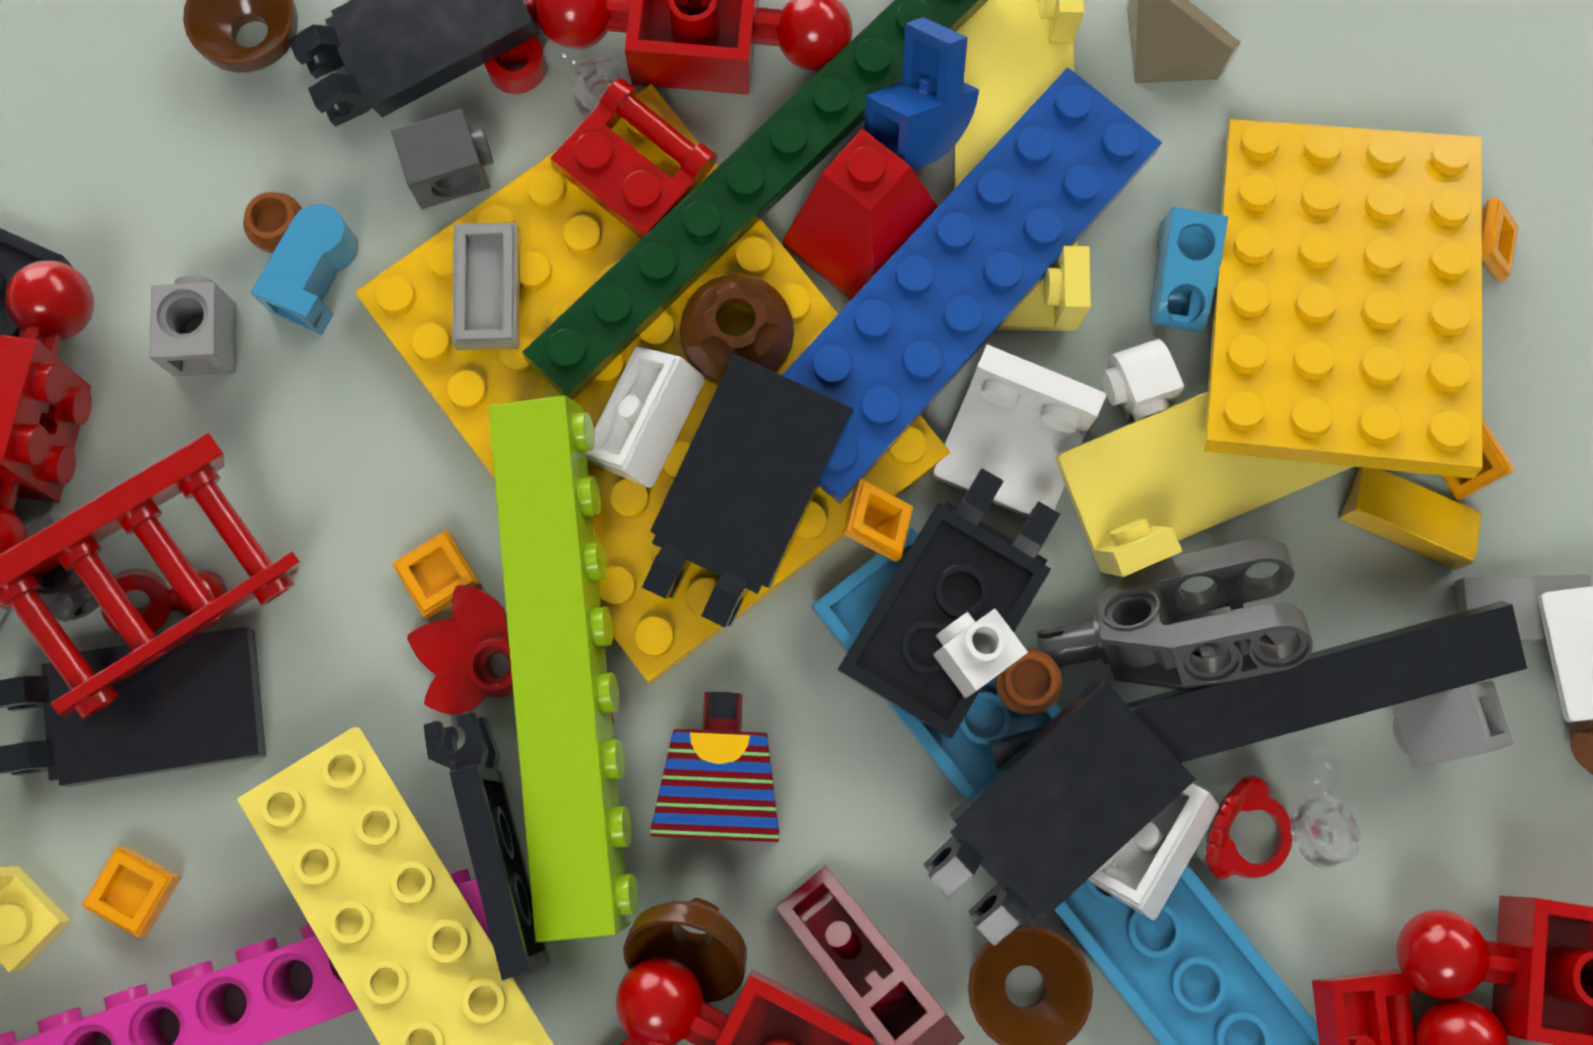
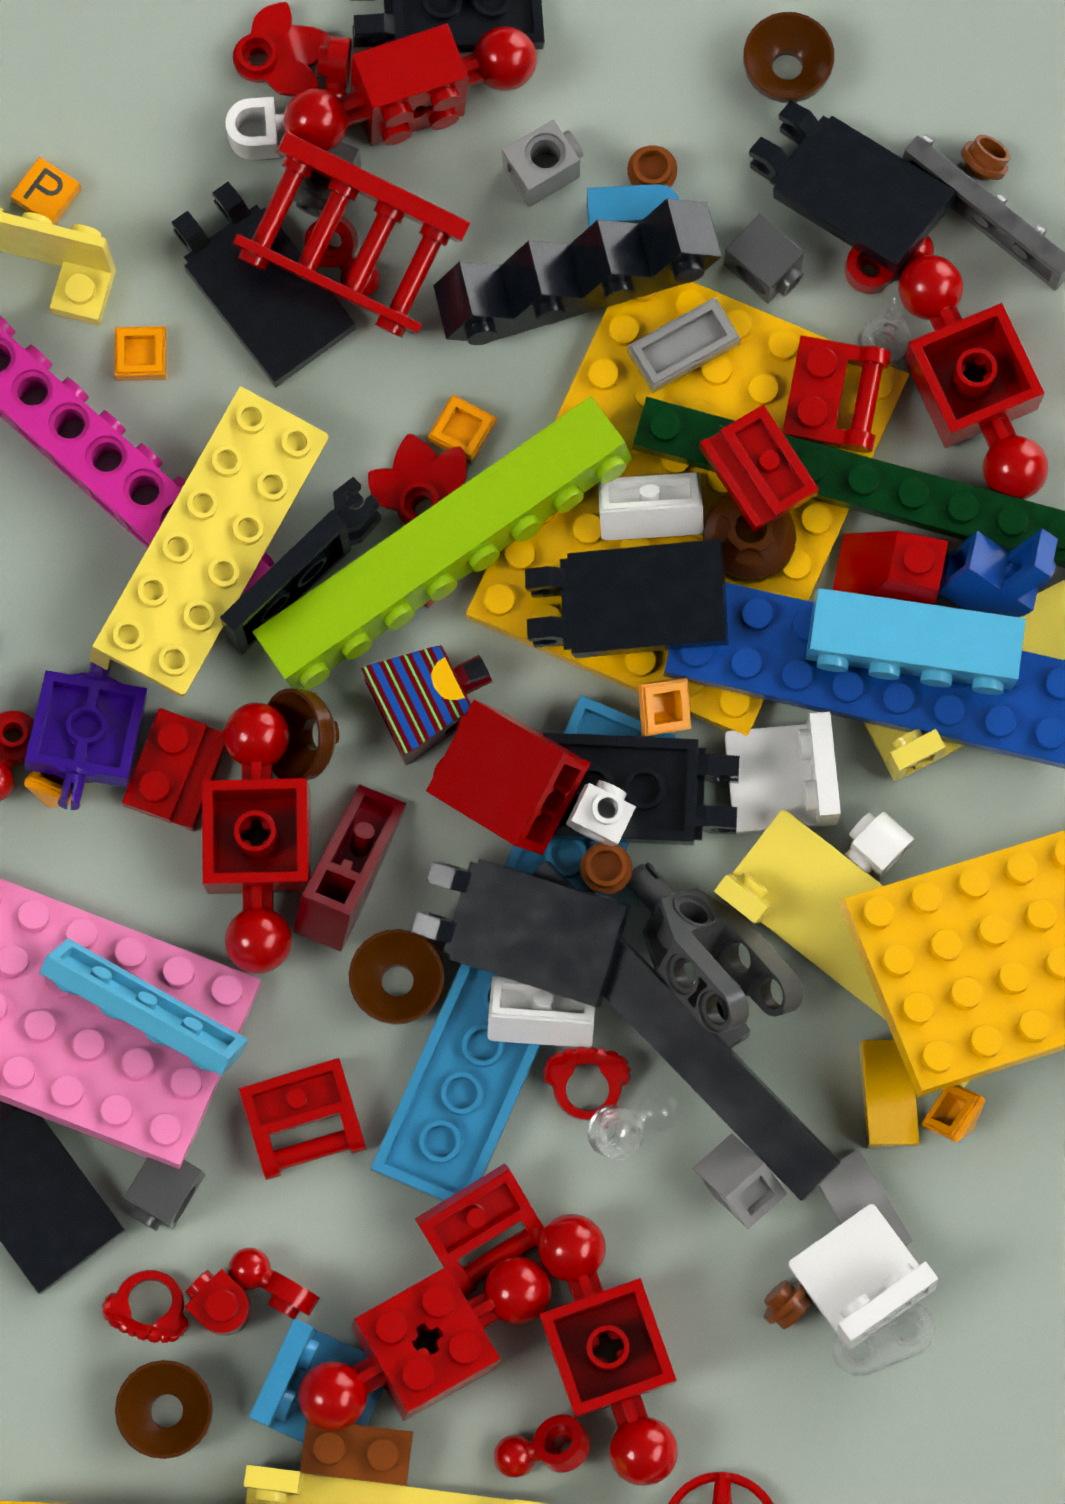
camera: 65 degrees right, 0 degrees up
(348, 332) = (595, 271): none -> black brick
(675, 271) = (759, 468): none -> red plate
(871, 737) = (507, 777): none -> red brick
(958, 212) = (915, 640): none -> medium azure brick
(1187, 268) = (981, 833): dark azure leg -> none

